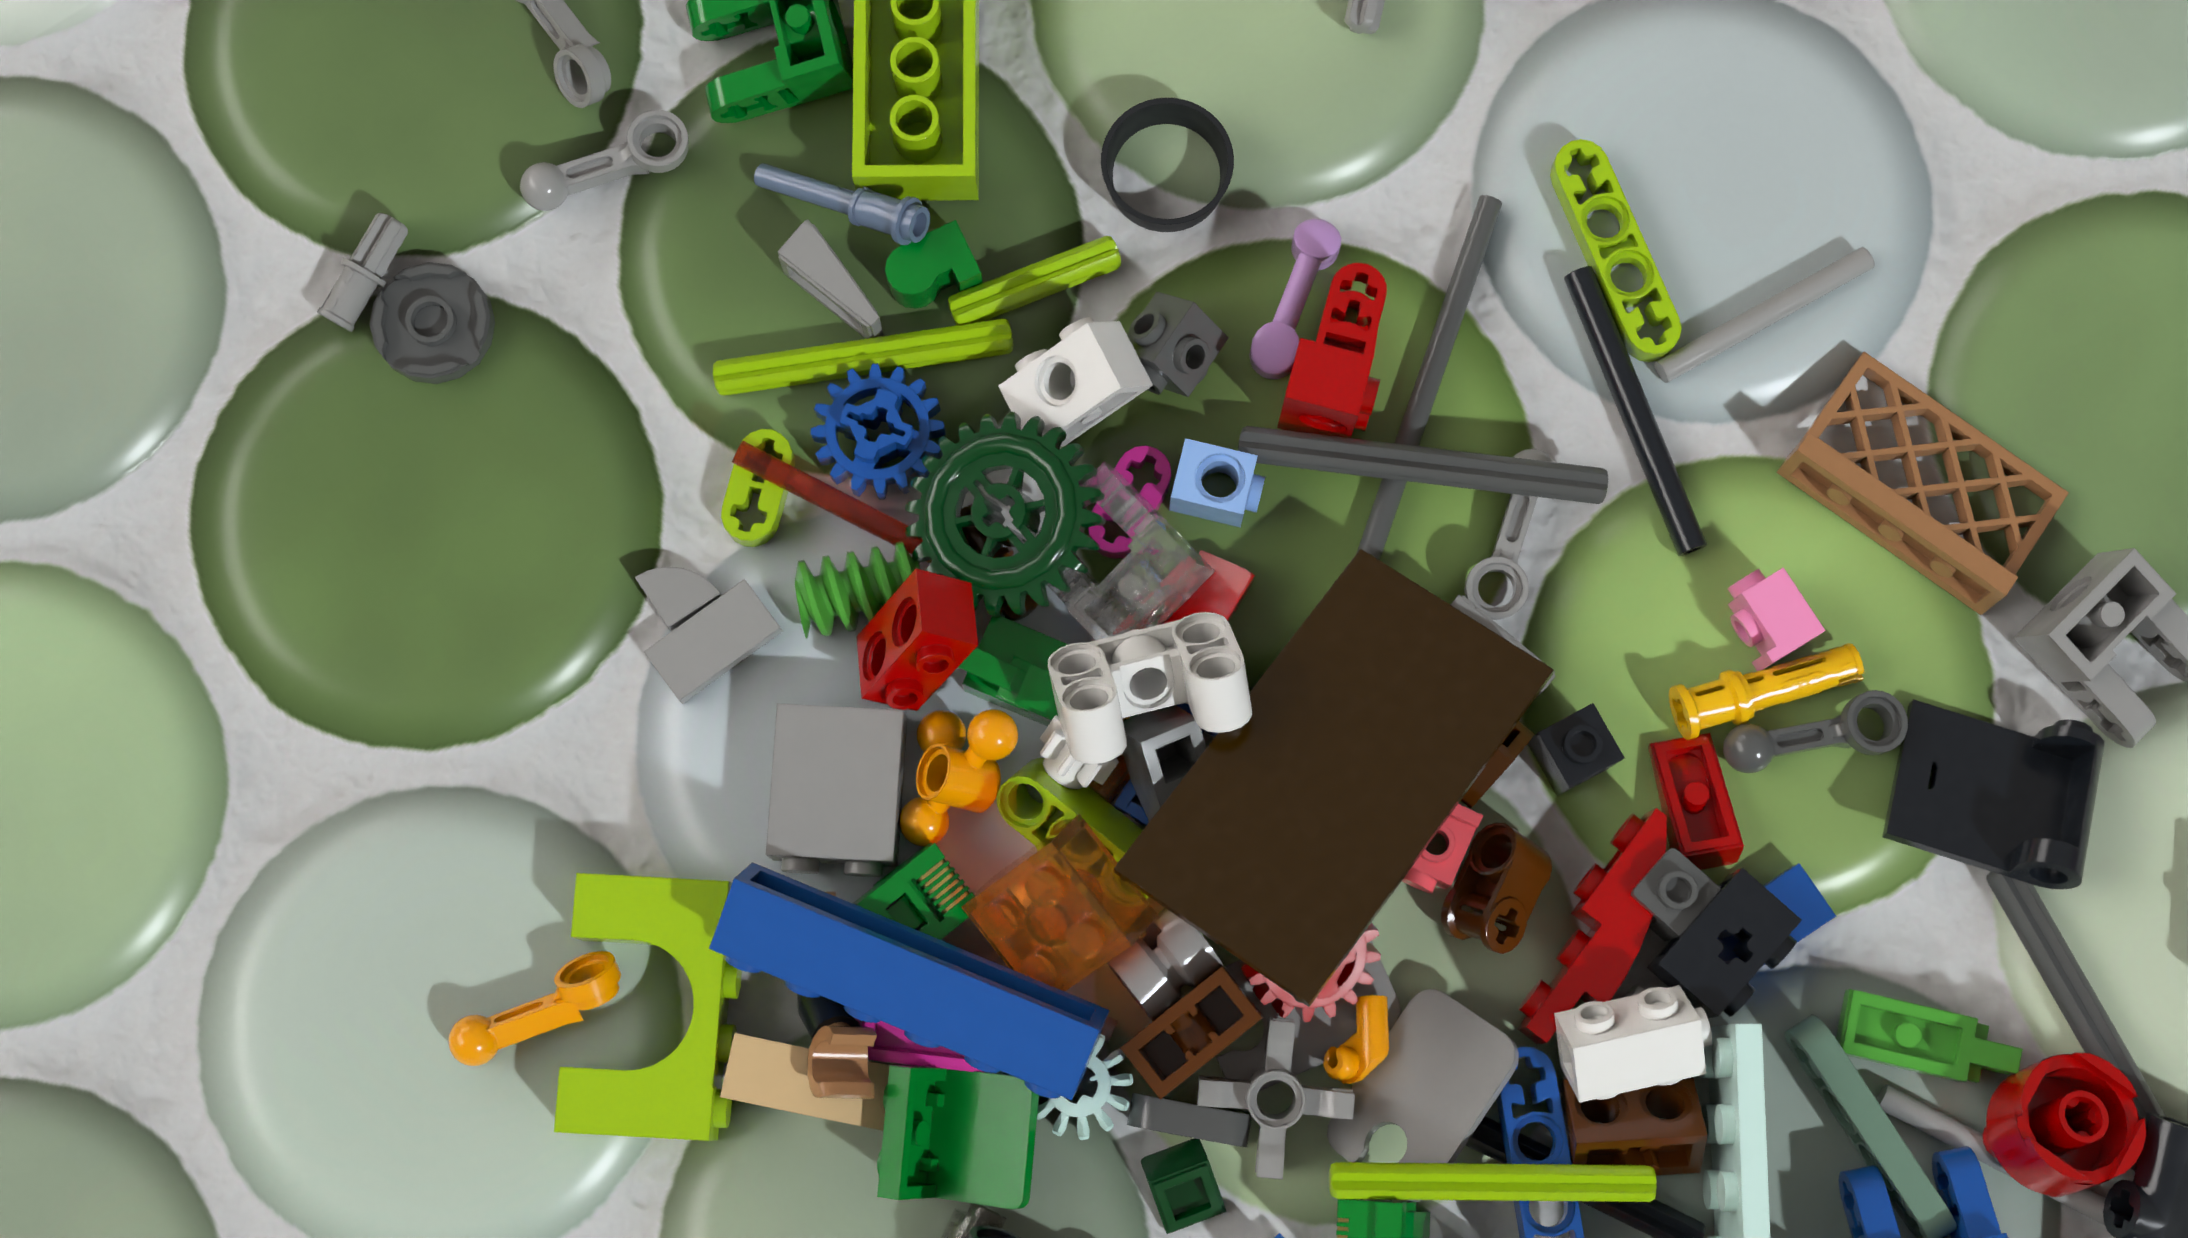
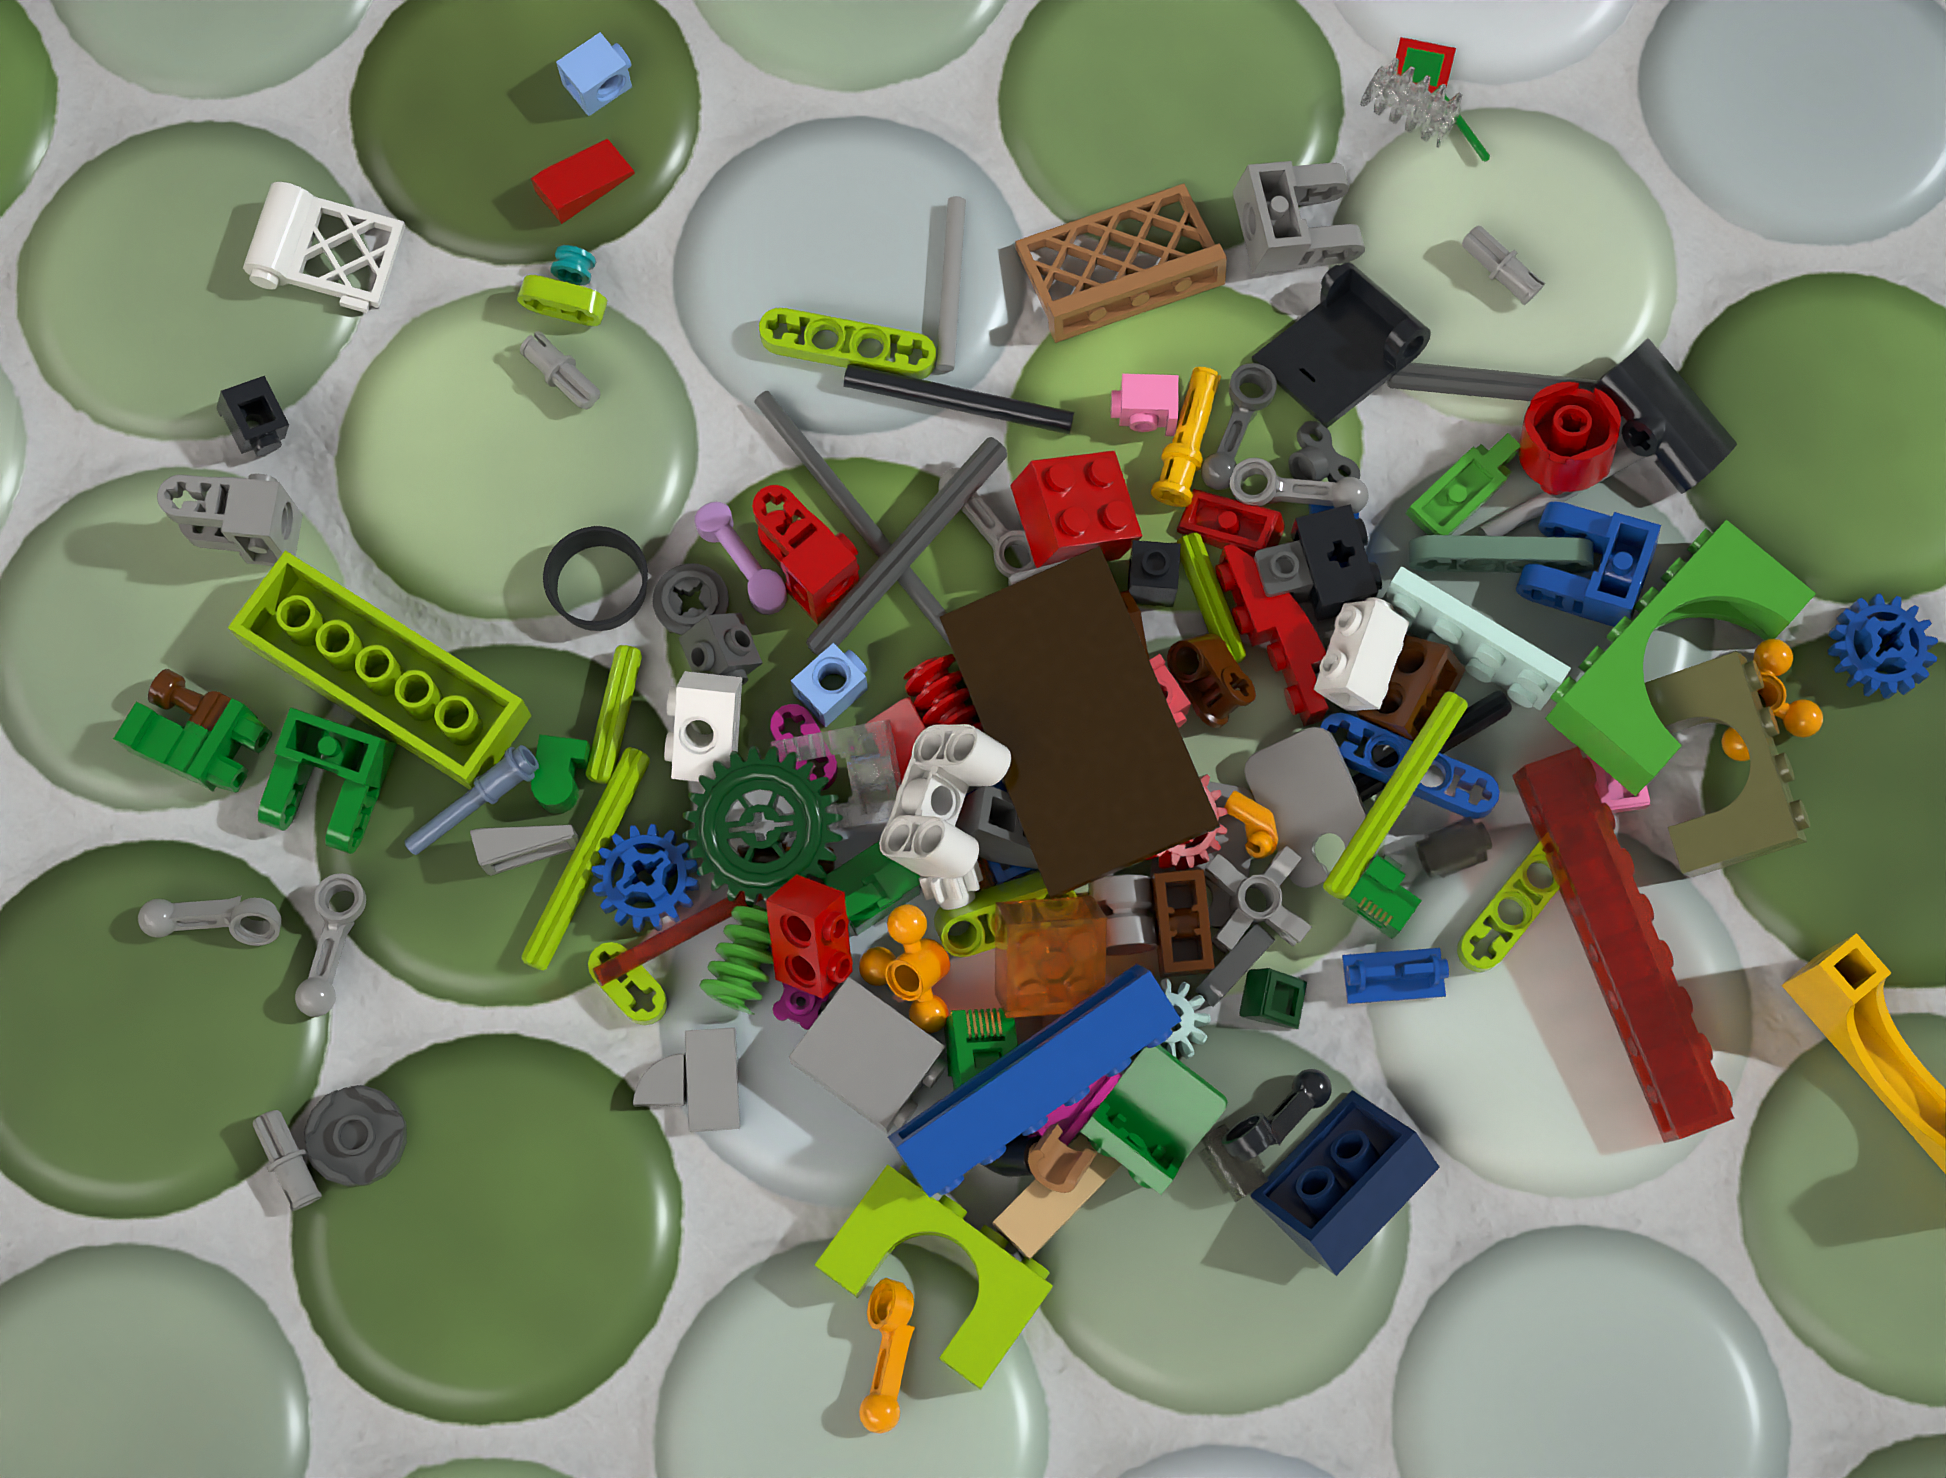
camera: 60 degrees left, 5 degrees down
(836, 669) = (788, 1009): none -> magenta plate
(1232, 260) = (687, 580): none -> dark grey gear
(1274, 612) = (938, 694): none -> red piece
(1589, 617) = (1075, 507): none -> red brick
(1596, 828) = (1209, 593): none -> lime axle
(1816, 906) = (1278, 489): none -> light grey piece
(1842, 854) = (1319, 458): none -> dark grey piece

